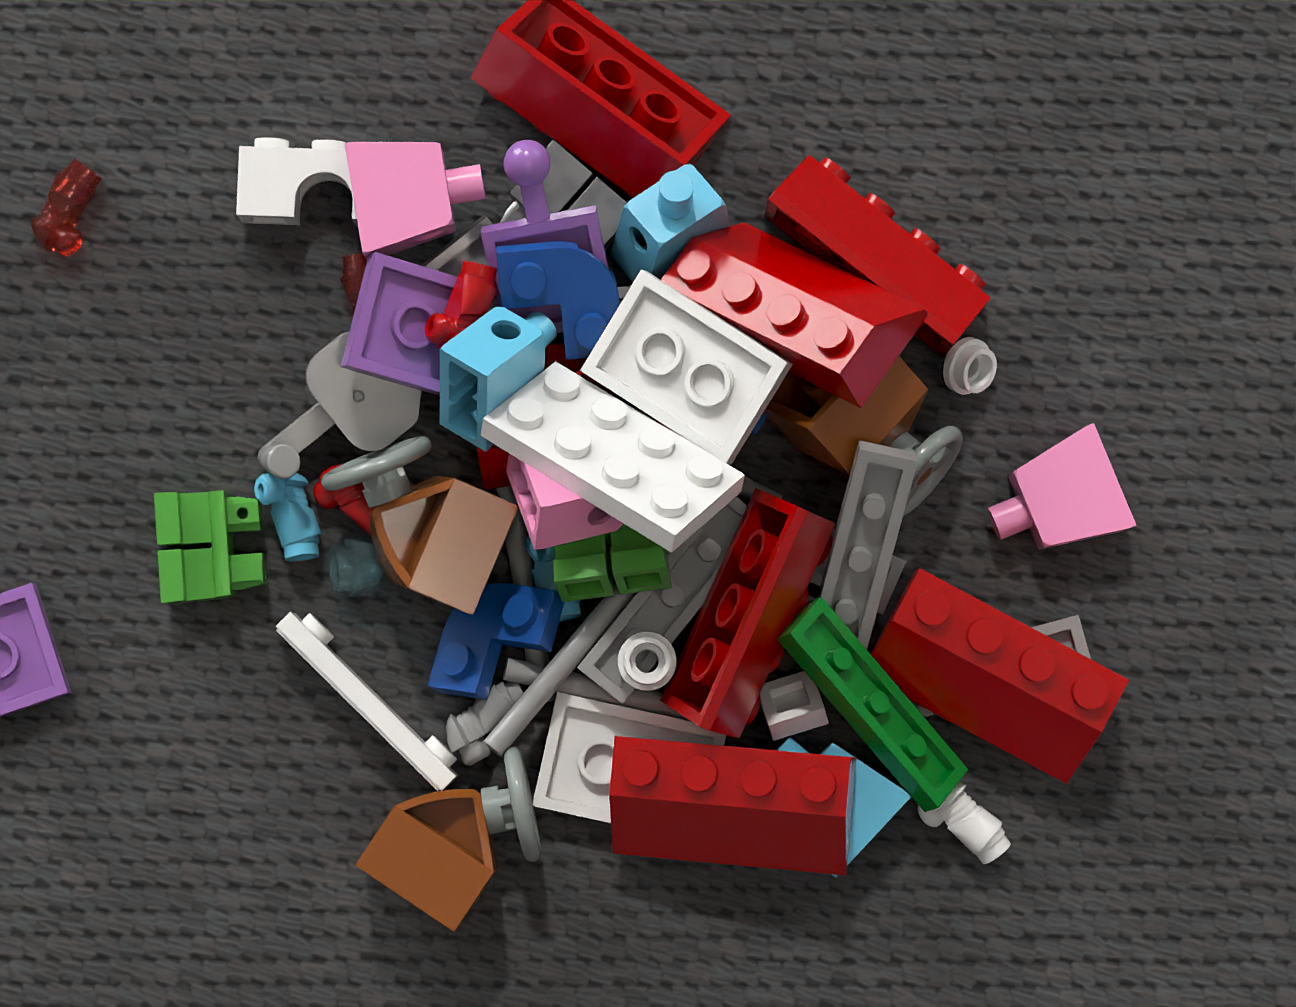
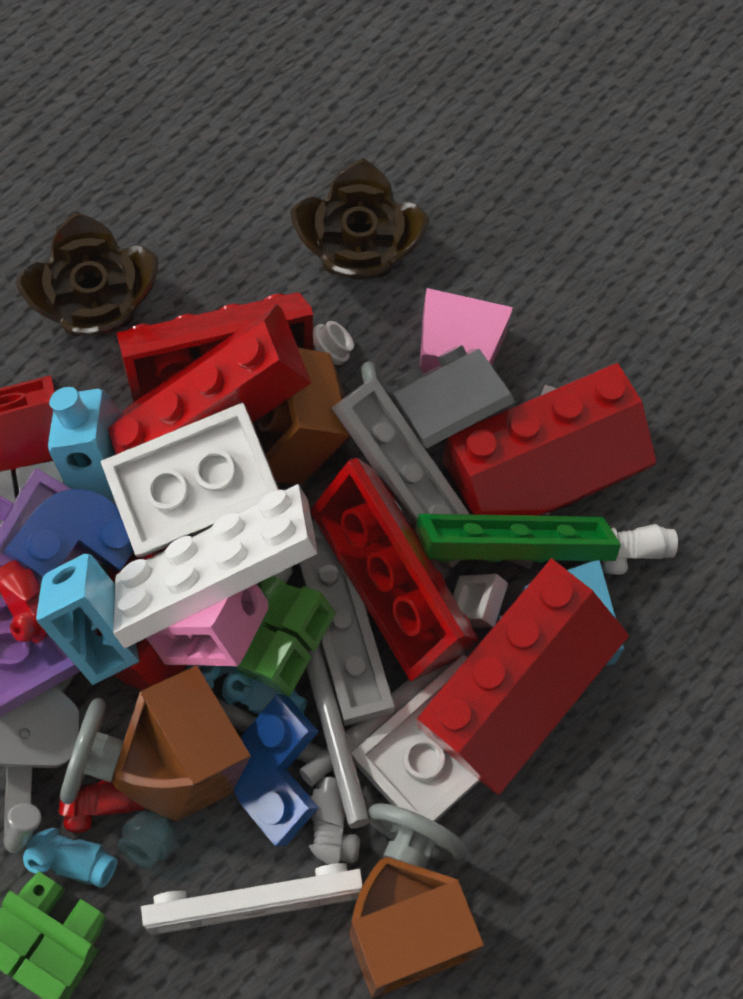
camera: 60 degrees left, 20 degrees down
(651, 642) = (381, 650): white plate -> none
(876, 42) = (85, 256): none -> dark brown brick
(969, 538) = (449, 395): none -> dark grey slope
(1157, 271) = (359, 202): none -> dark brown brick

